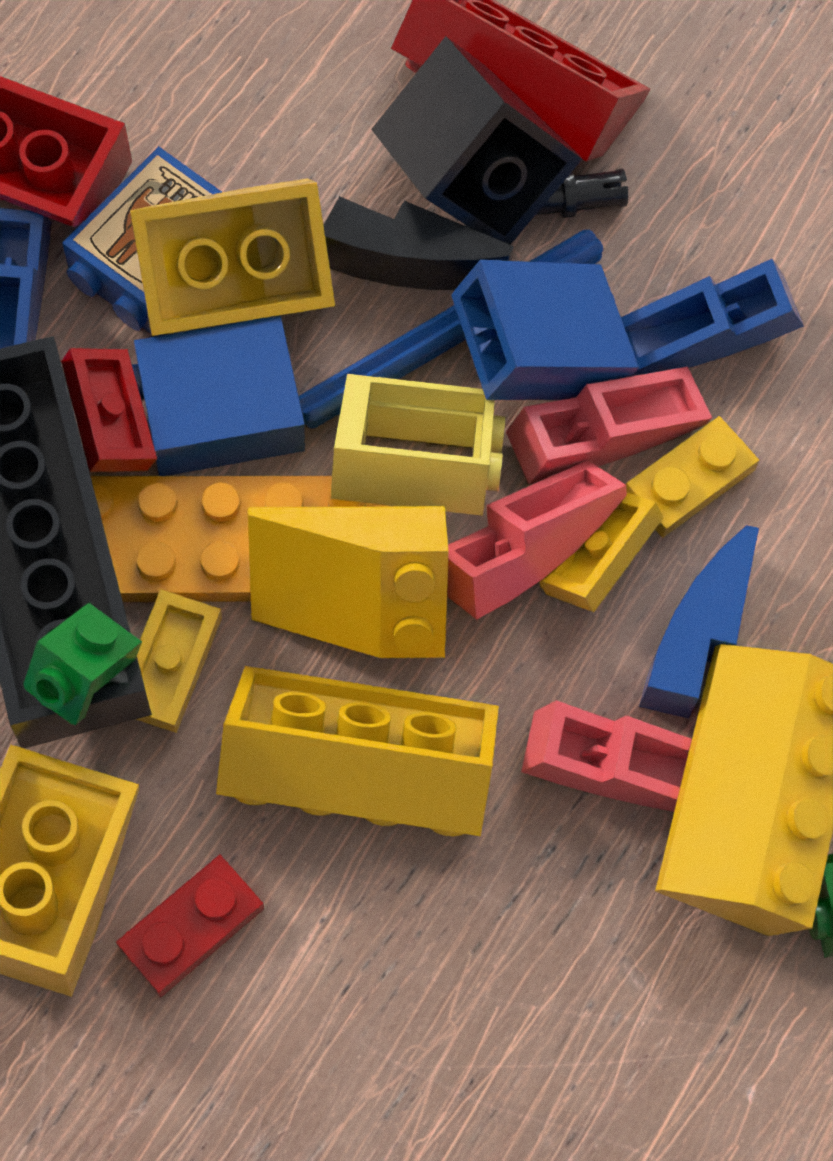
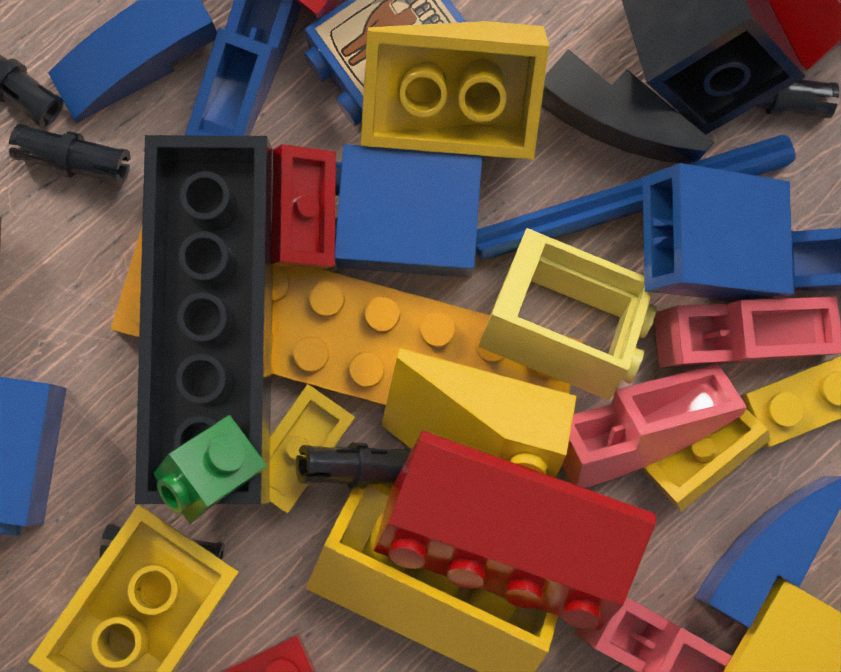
camera: 15 degrees right, 15 degrees up
(236, 654) = (350, 465): none -> black pin
(419, 656) = (513, 532): none -> red slope

